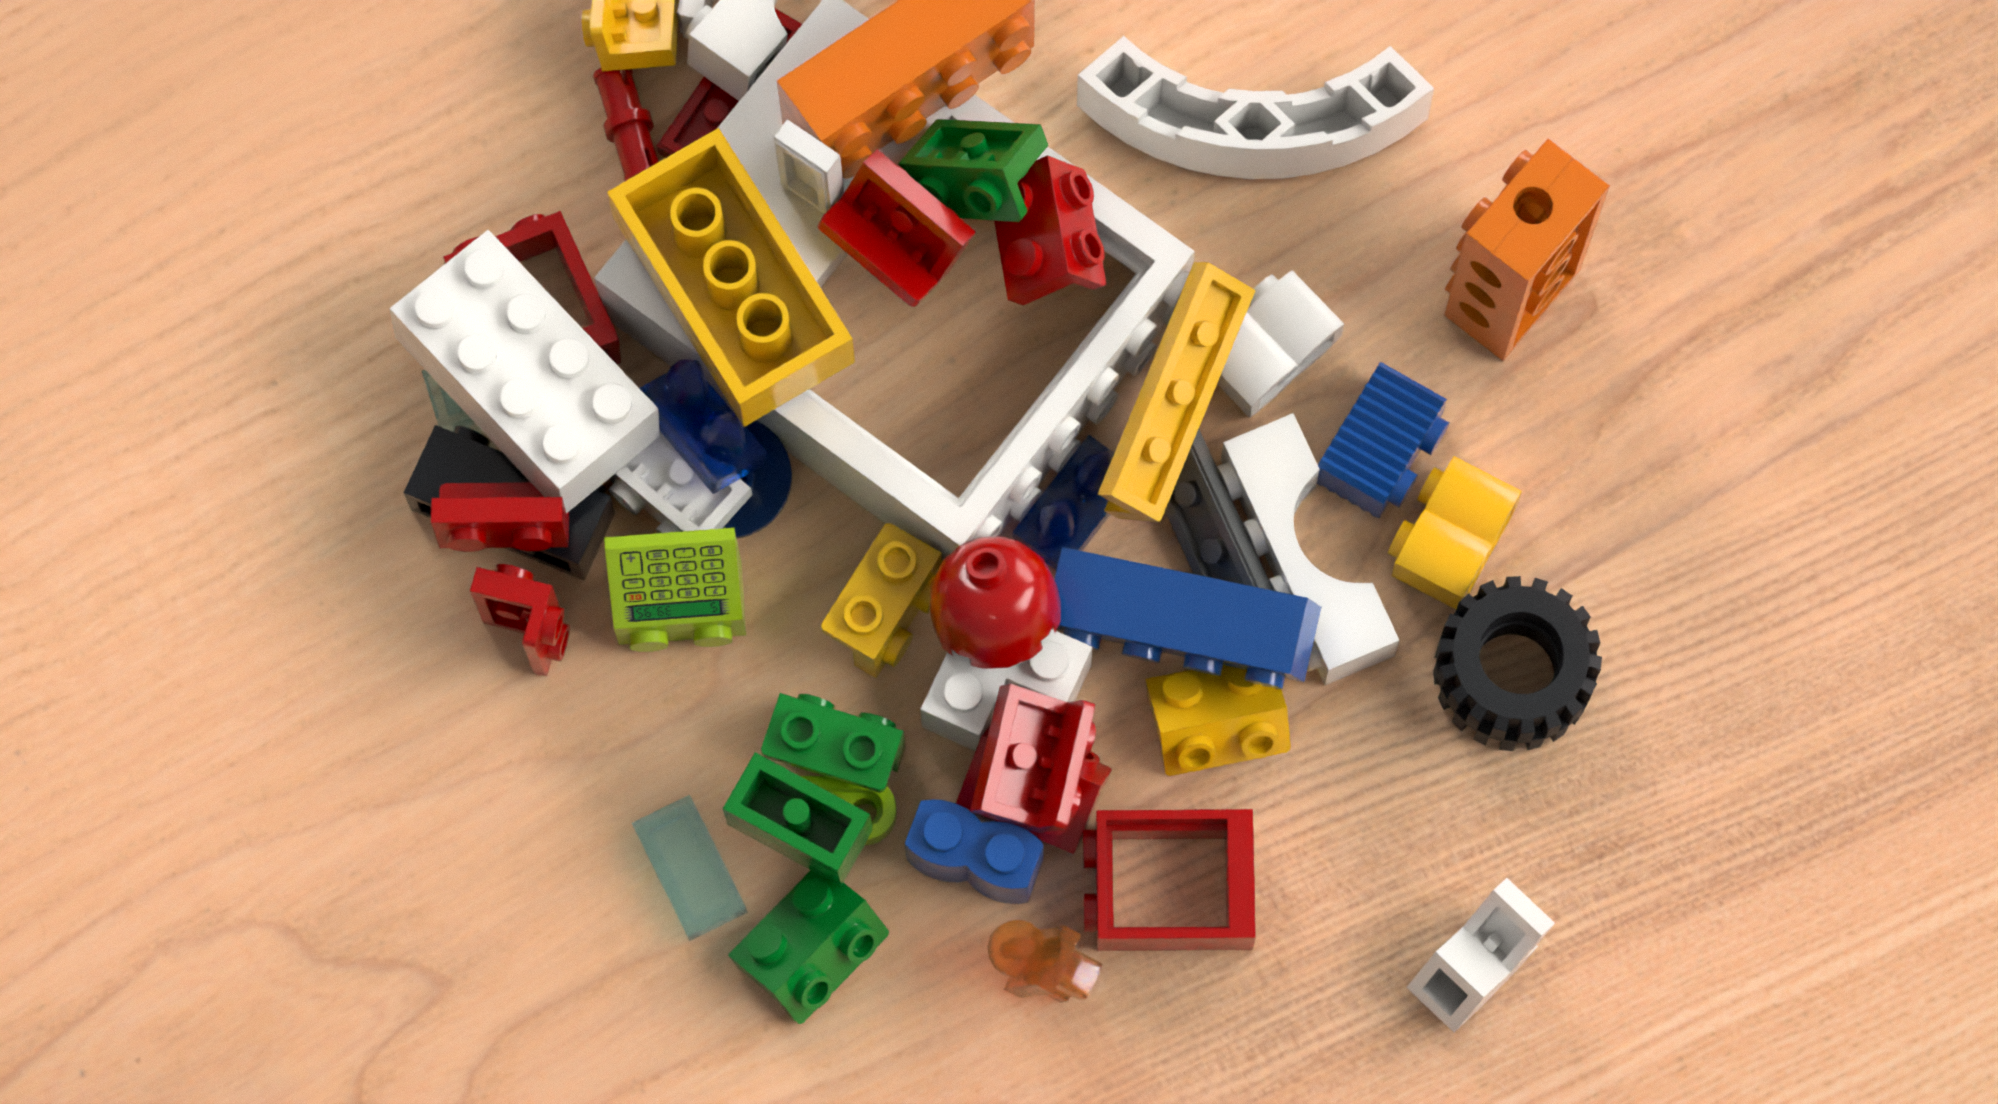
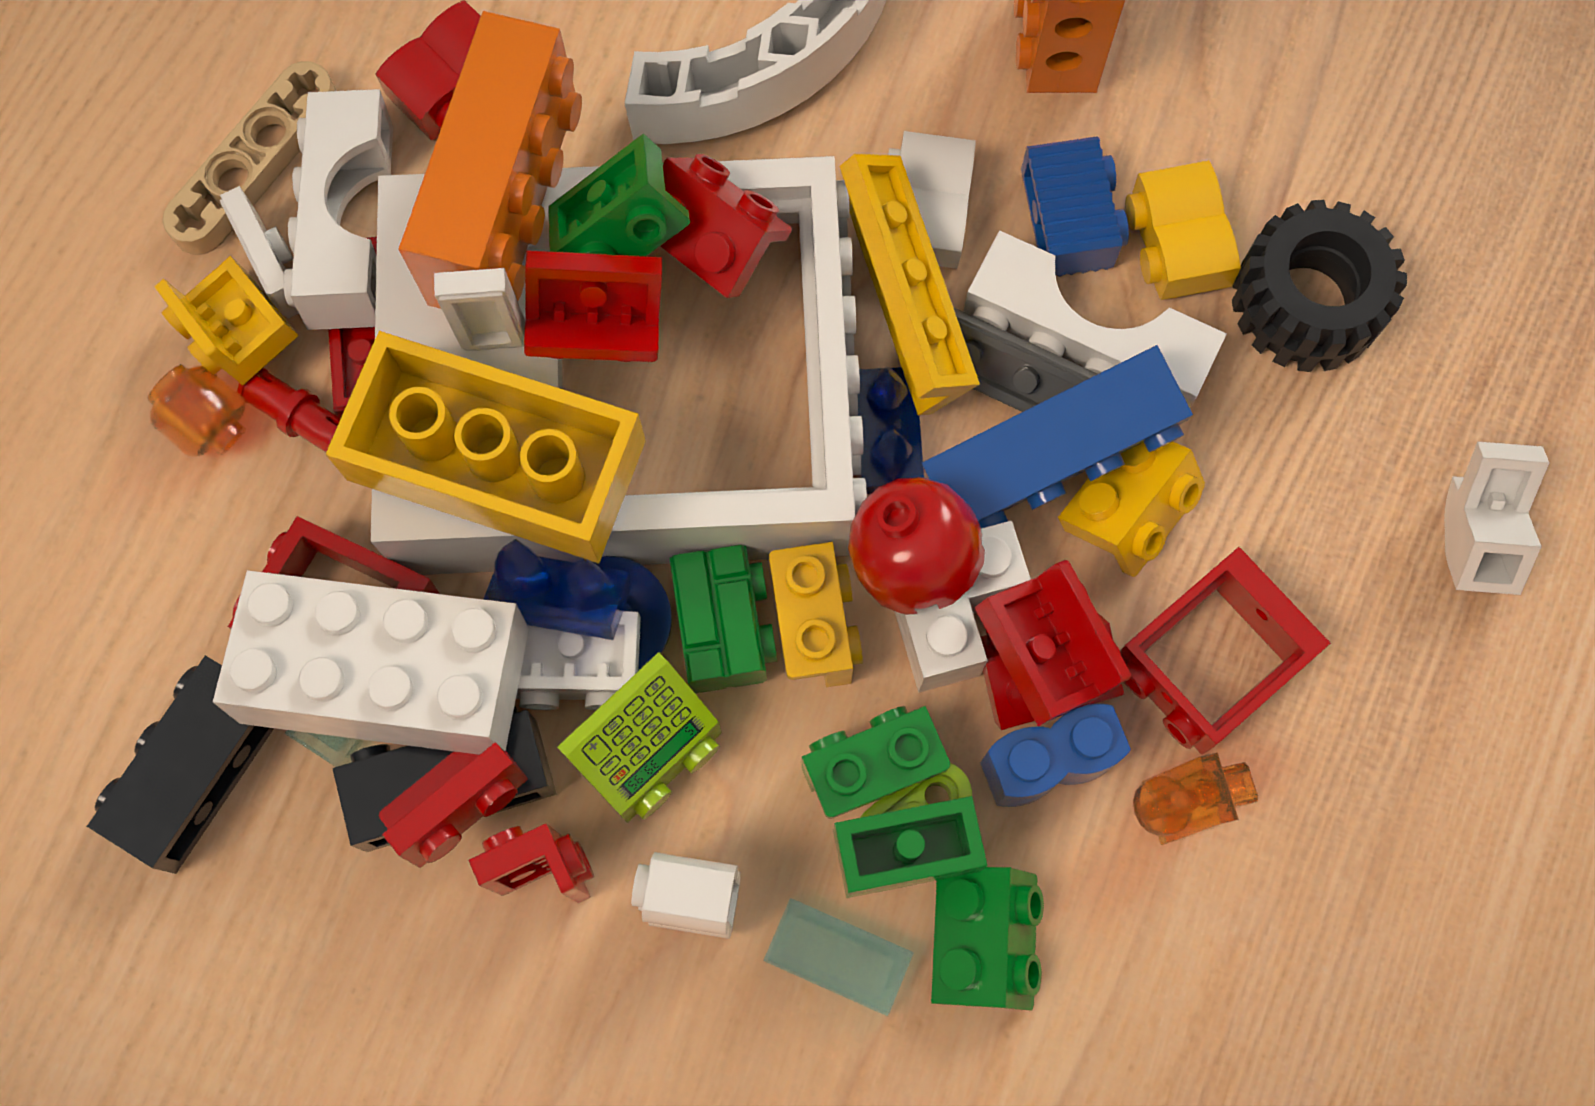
camera: 40 degrees left, 0 degrees up
(324, 339) = (178, 775): none -> black brick
(552, 64) = (197, 411): none -> clear orange head
(614, 726) = (687, 894): none -> white brick
(814, 545) = (720, 618): none -> green brick

